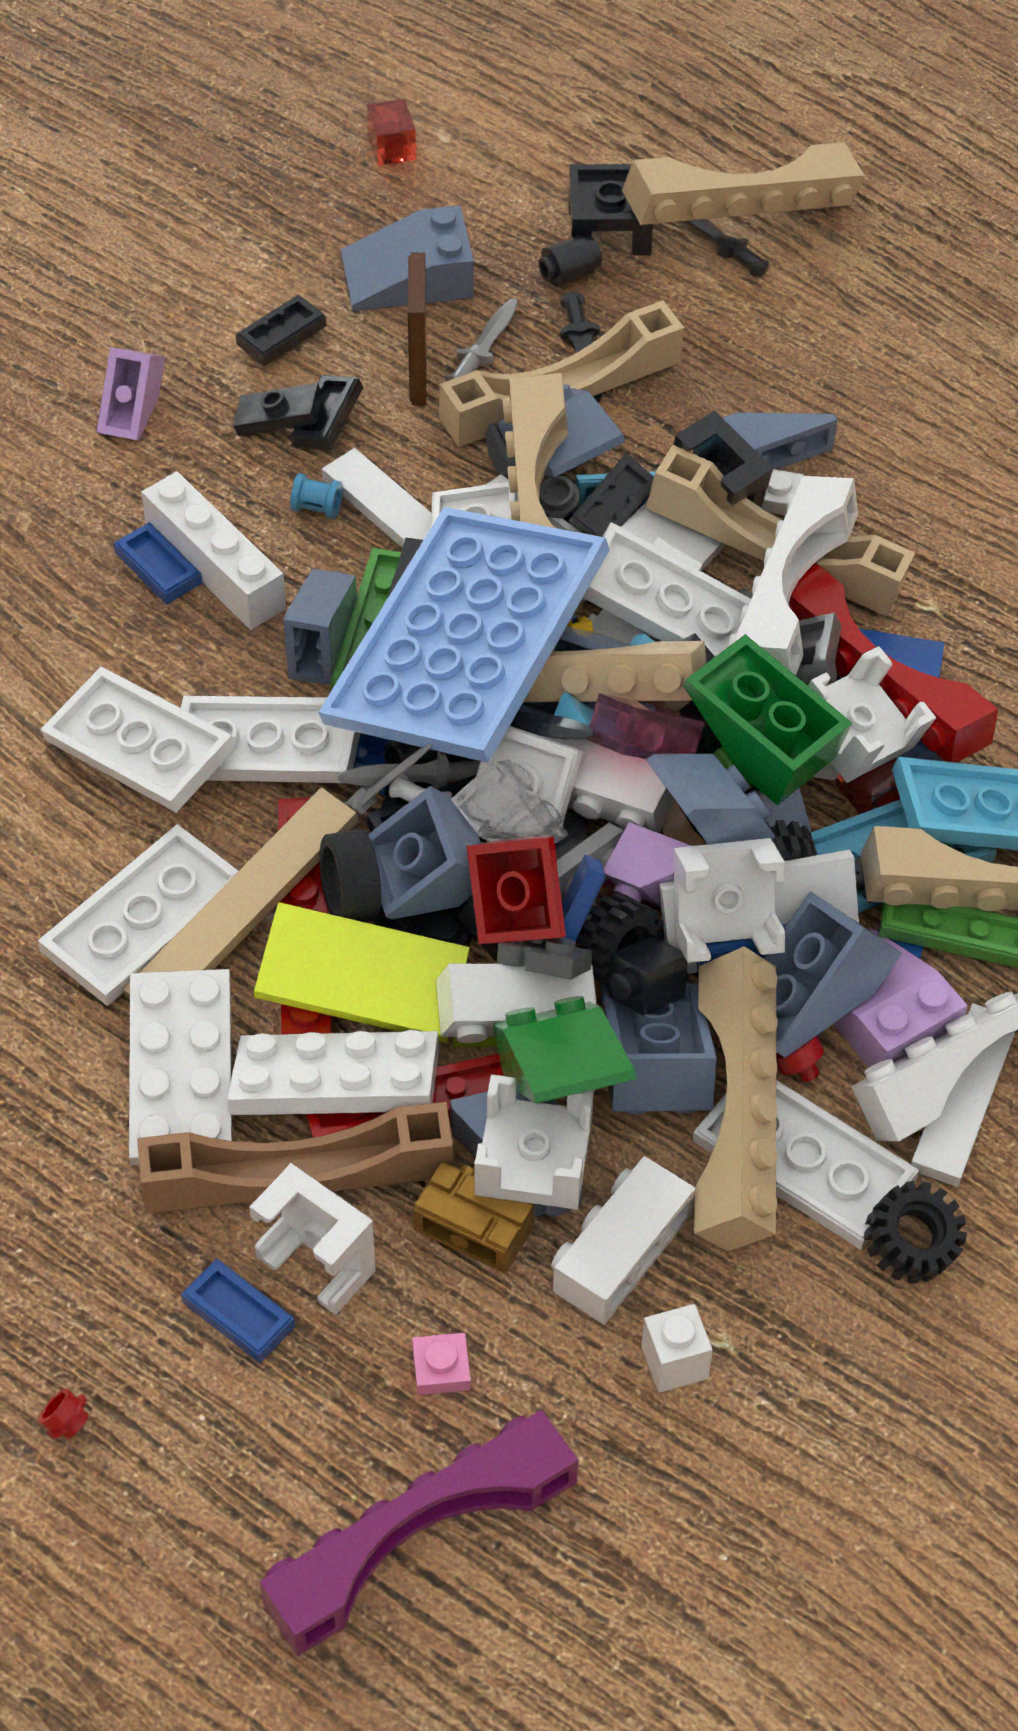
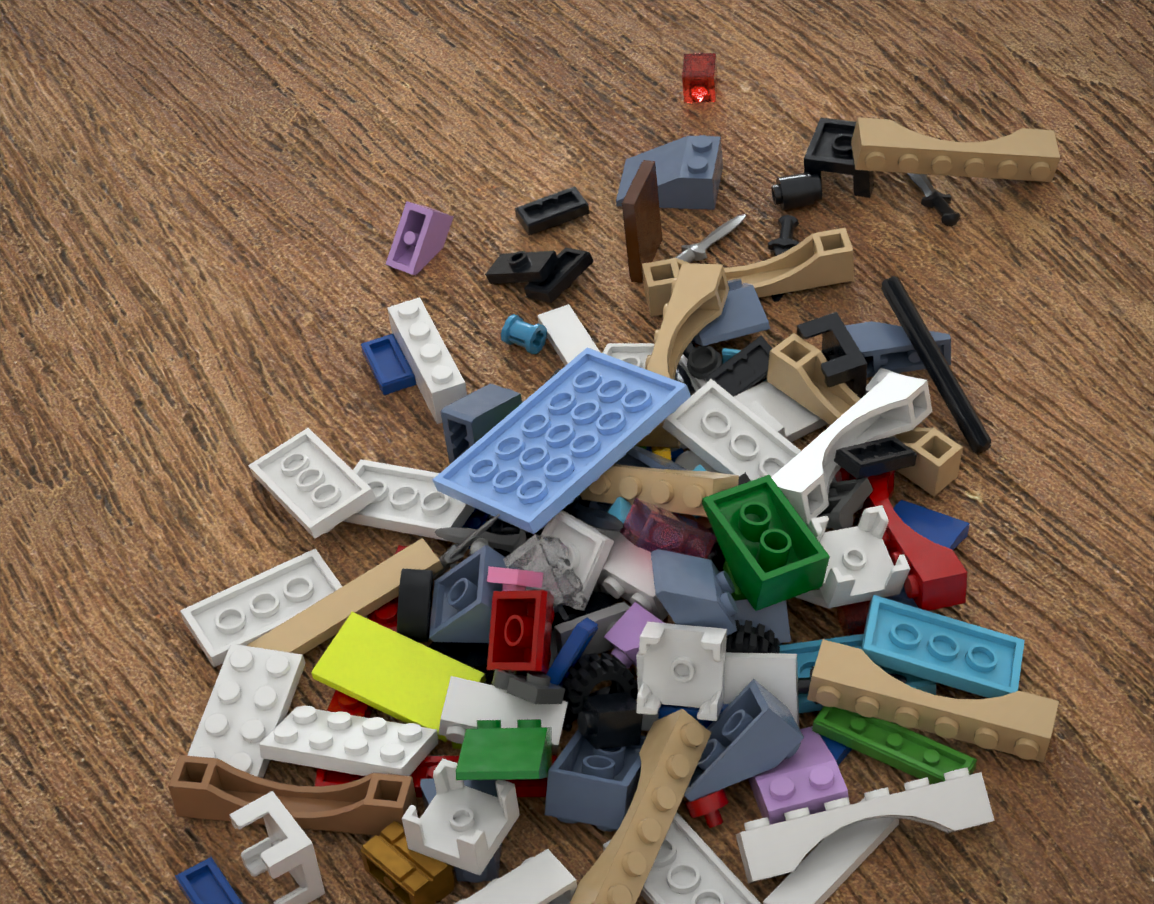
camera: 25 degrees right, 10 degrees down
(483, 824) = (514, 578): none -> bright pink plate
(829, 585) = (875, 457): none -> black plate
(833, 452) = (936, 365): none -> black axle

